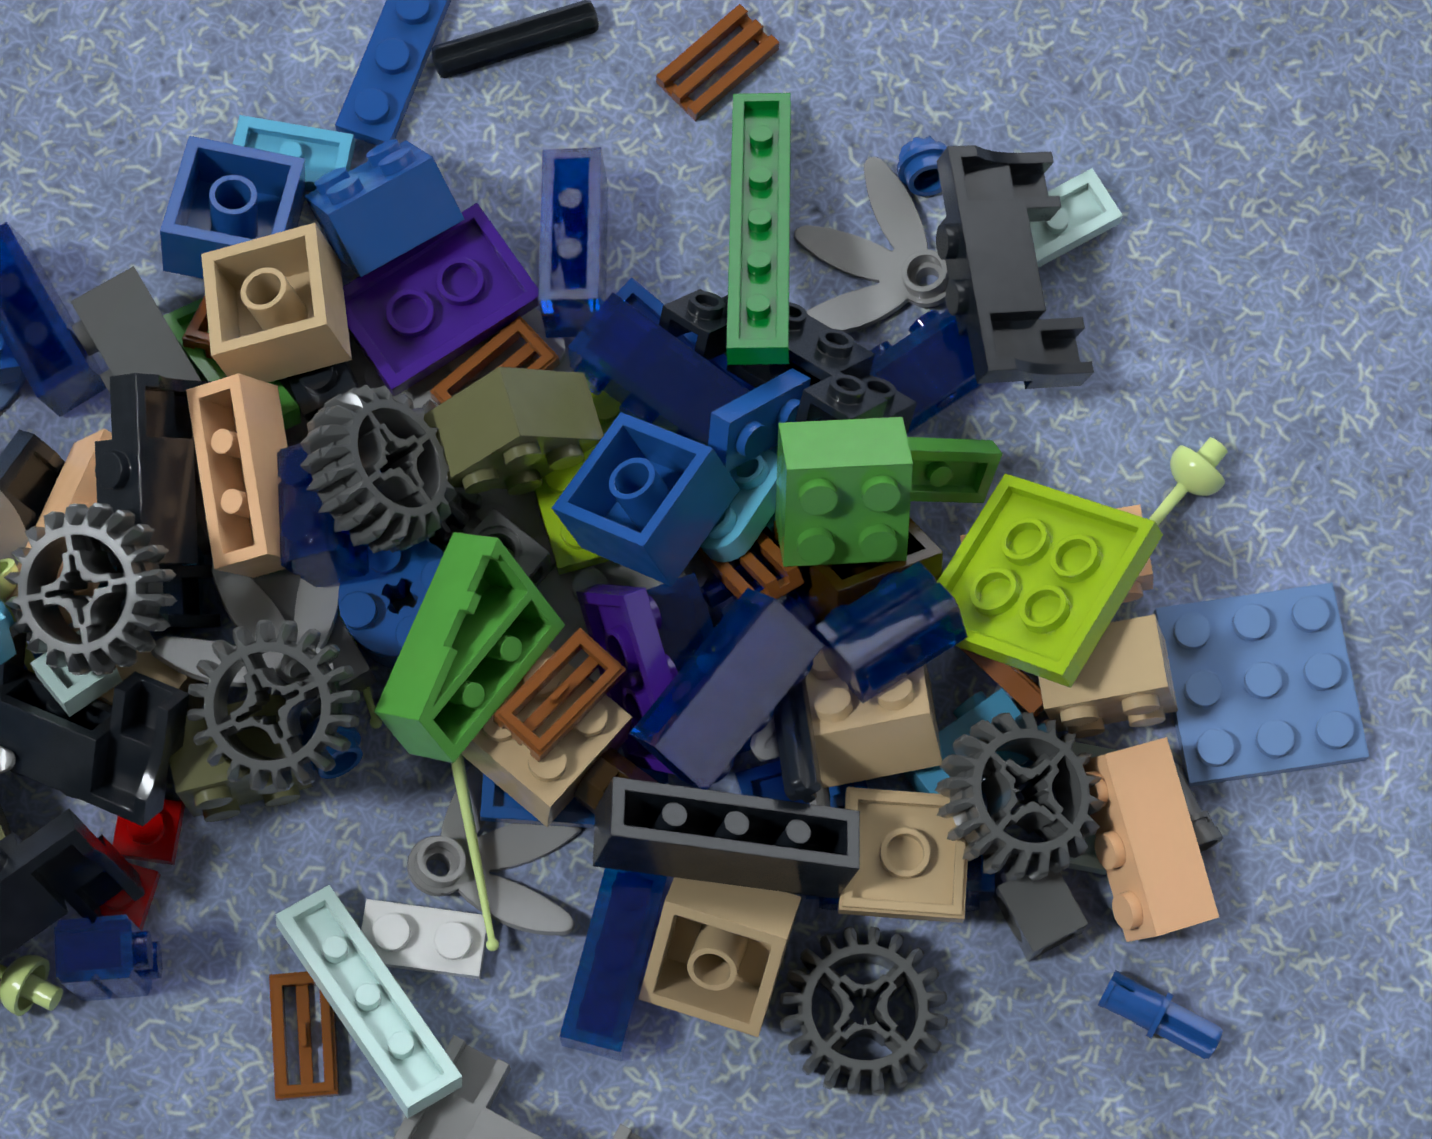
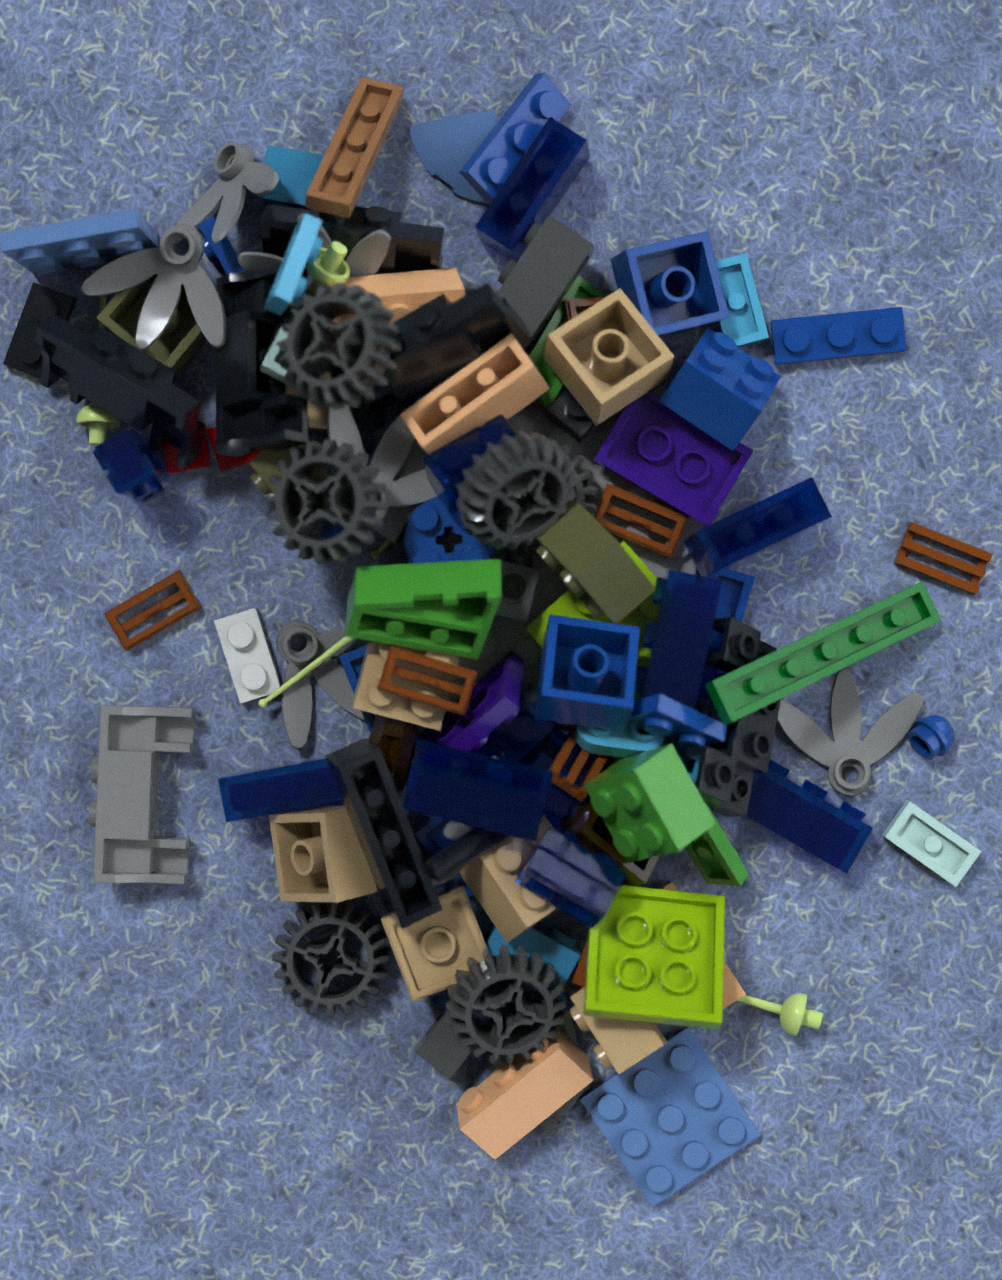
camera: 65 degrees right, 15 degrees up
(369, 1001) = (185, 645): light aqua plate -> none
(515, 38) = (894, 411): black axle -> none
(995, 268) = (868, 825): black bracket -> none
(1160, 1015) = (418, 1145): blue axle -> none

